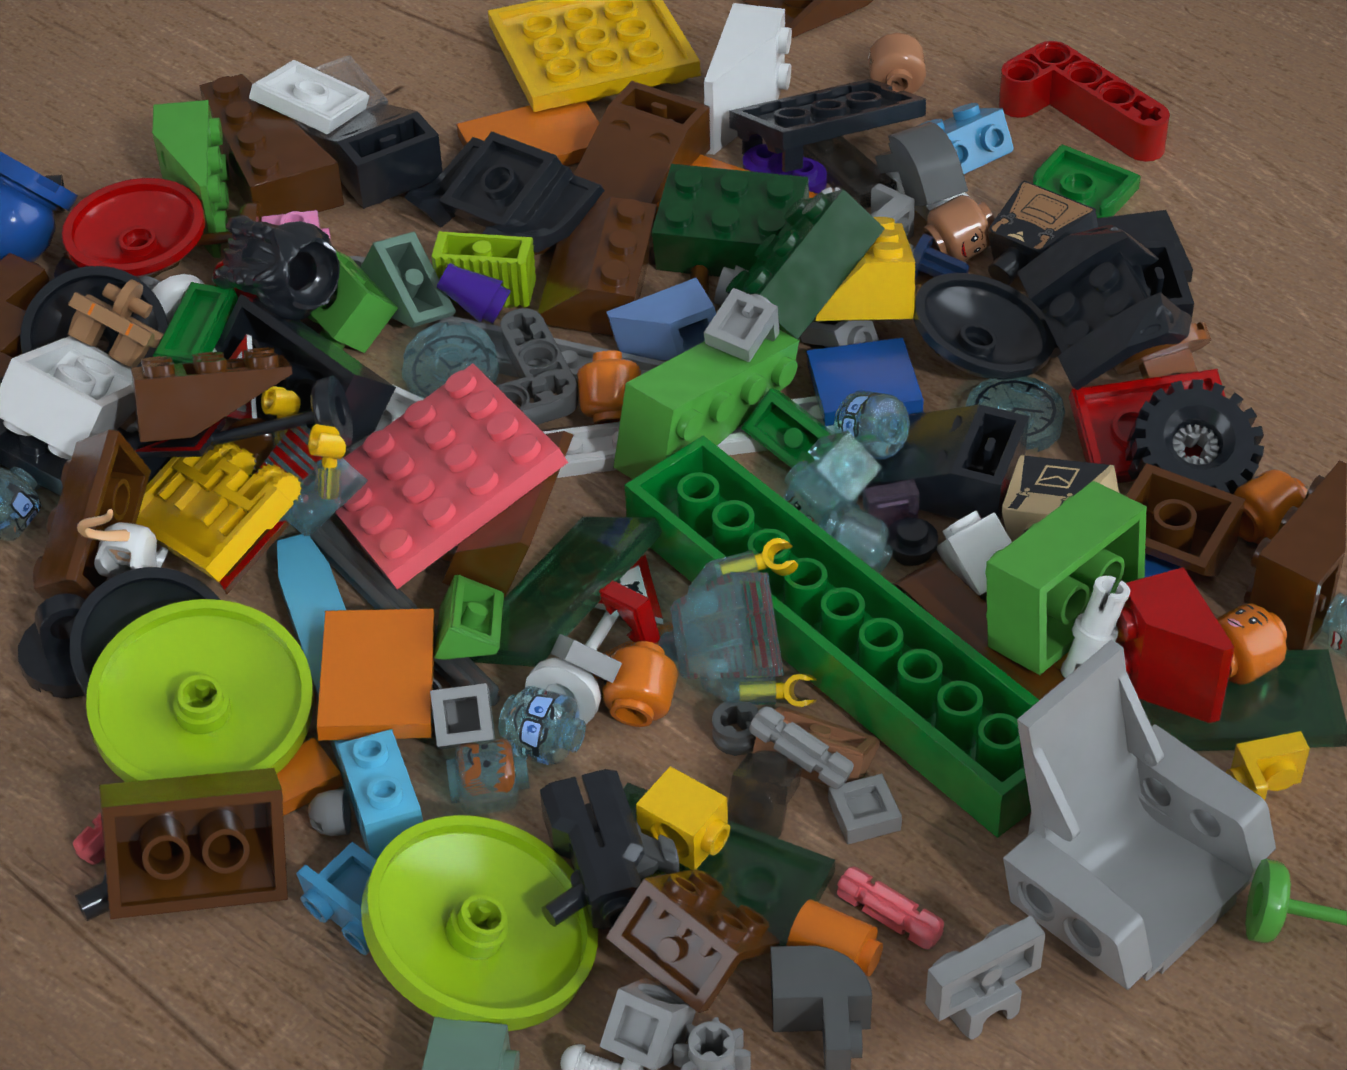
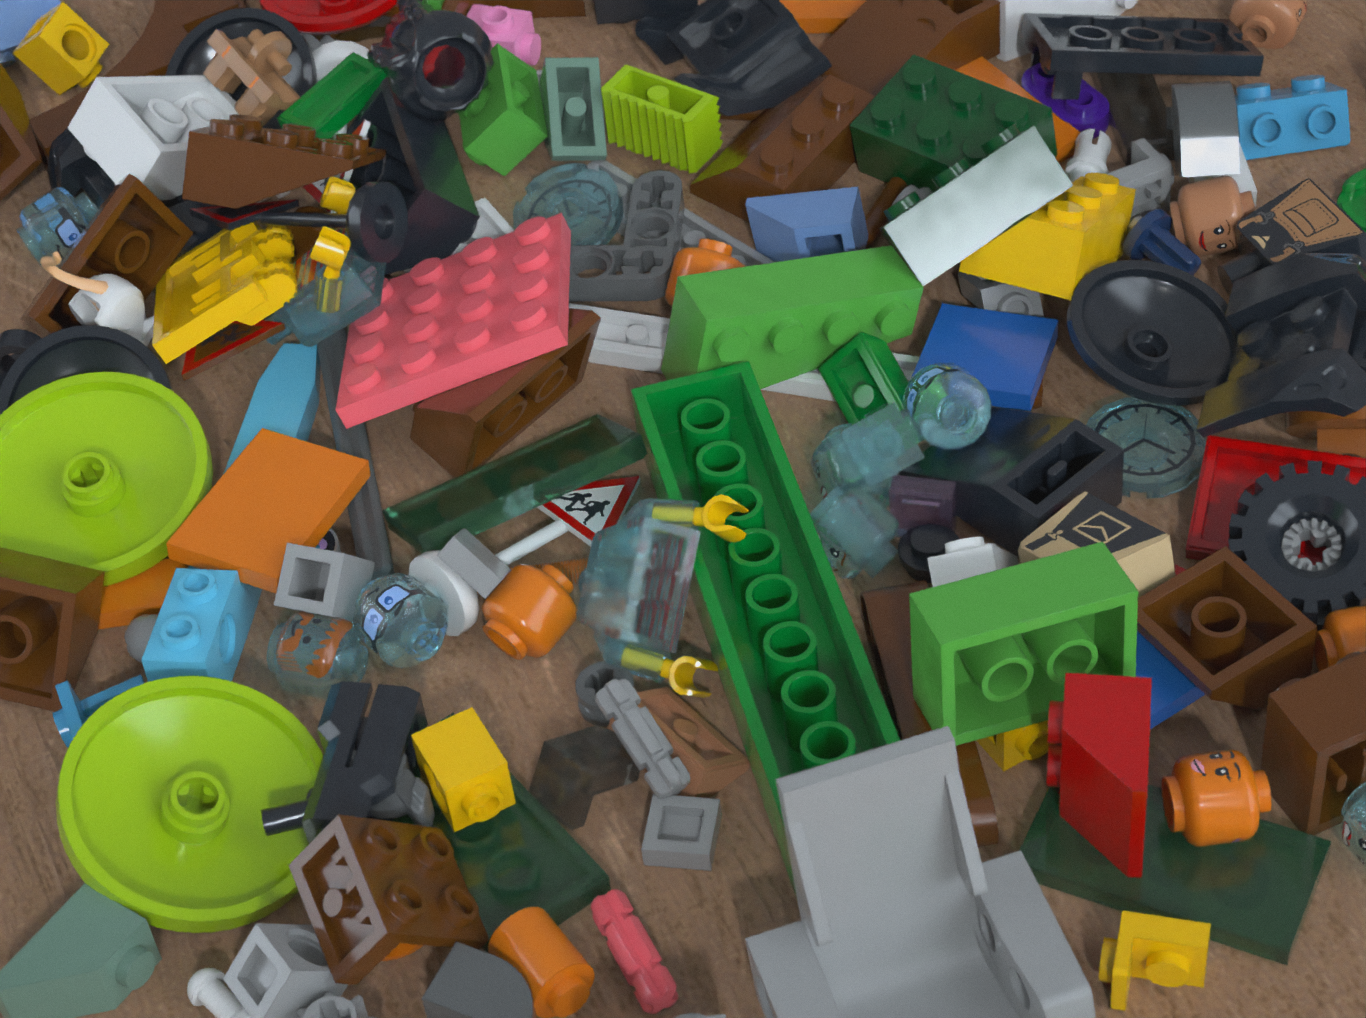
camera: 30 degrees right, 0 degrees up
(469, 620) = (399, 484): bright green slope -> none
(474, 292) = (631, 141): dark purple cone -> none
(633, 609) = (562, 532): red tile -> none
(743, 324) = (851, 249): light grey bracket -> none
(1097, 623) = (1019, 717): white pin -> none

